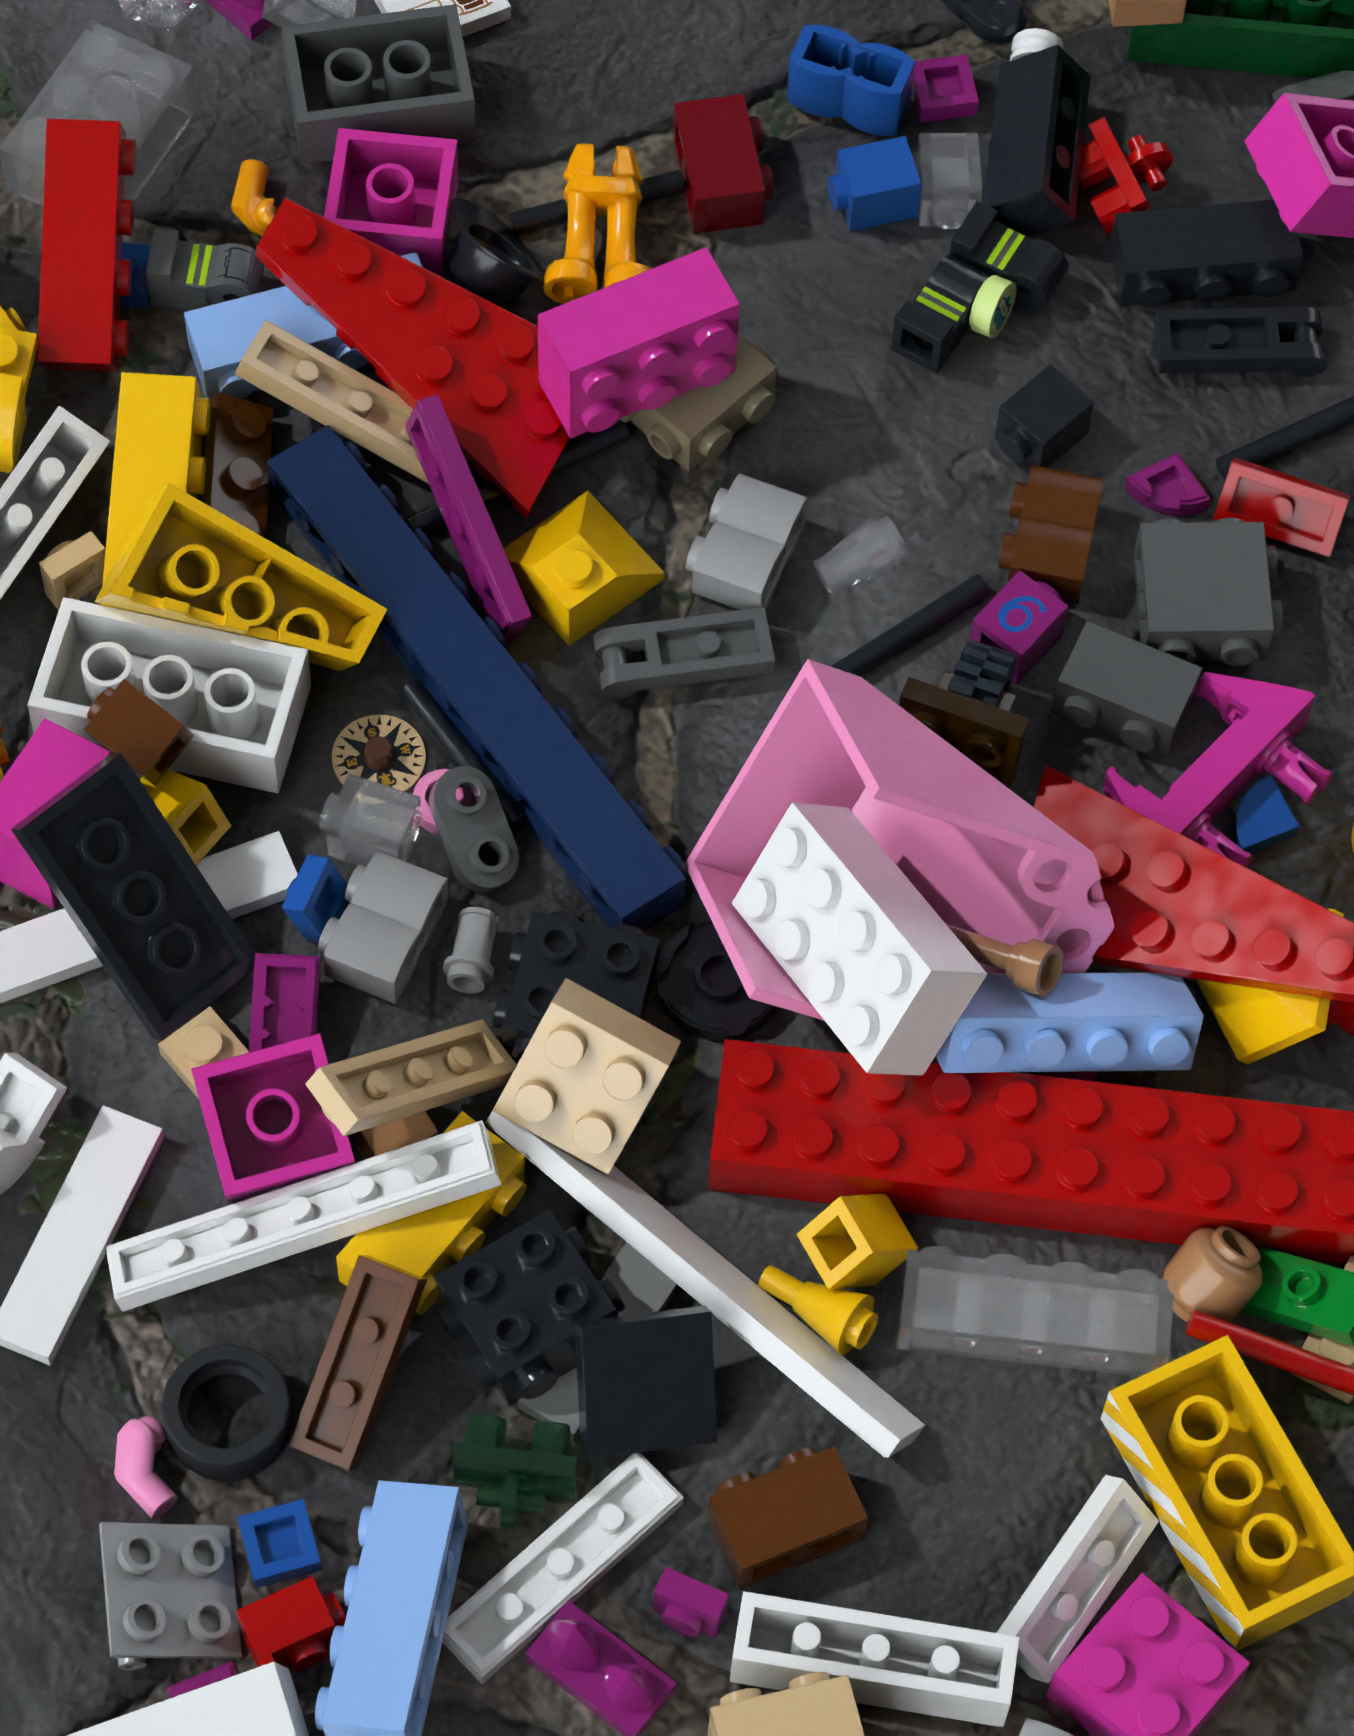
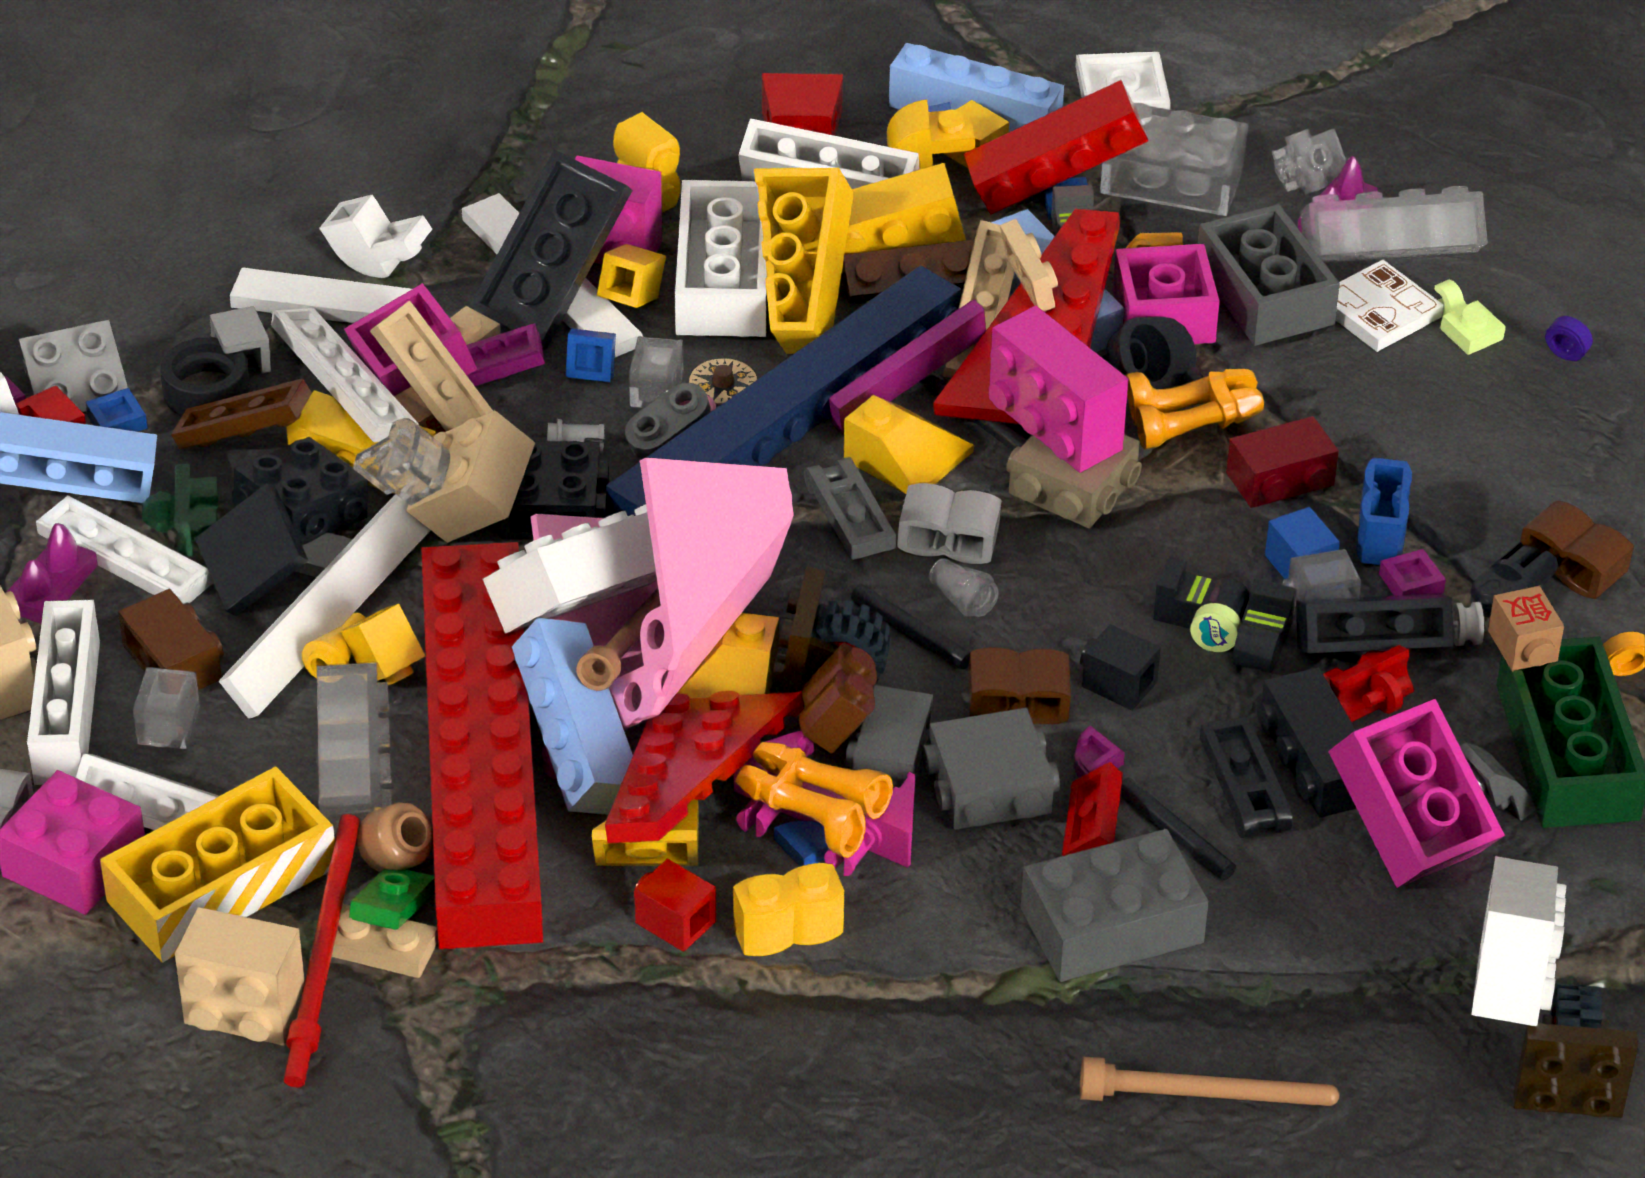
camera: 80 degrees right, 20 degrees down
(135, 1462) = (154, 351): bright pink arm -> none
(139, 729) = (666, 218): reddish brown brick -> none
(168, 1346) = (244, 332): none -> light grey panel
(383, 926) = (579, 390): light grey brick -> none
(387, 322) = (1024, 257): none -> tan plate
(583, 1126) = (405, 462): none -> clear brick
(689, 1604) = (106, 602): magenta plate -> none
(912, 1535) = (166, 708): none -> clear brick
(1022, 620) = (930, 669): magenta brick -> none
(1081, 721) = (838, 697): none -> reddish brown brick
(1278, 719) = (864, 790): none -> light orange piece

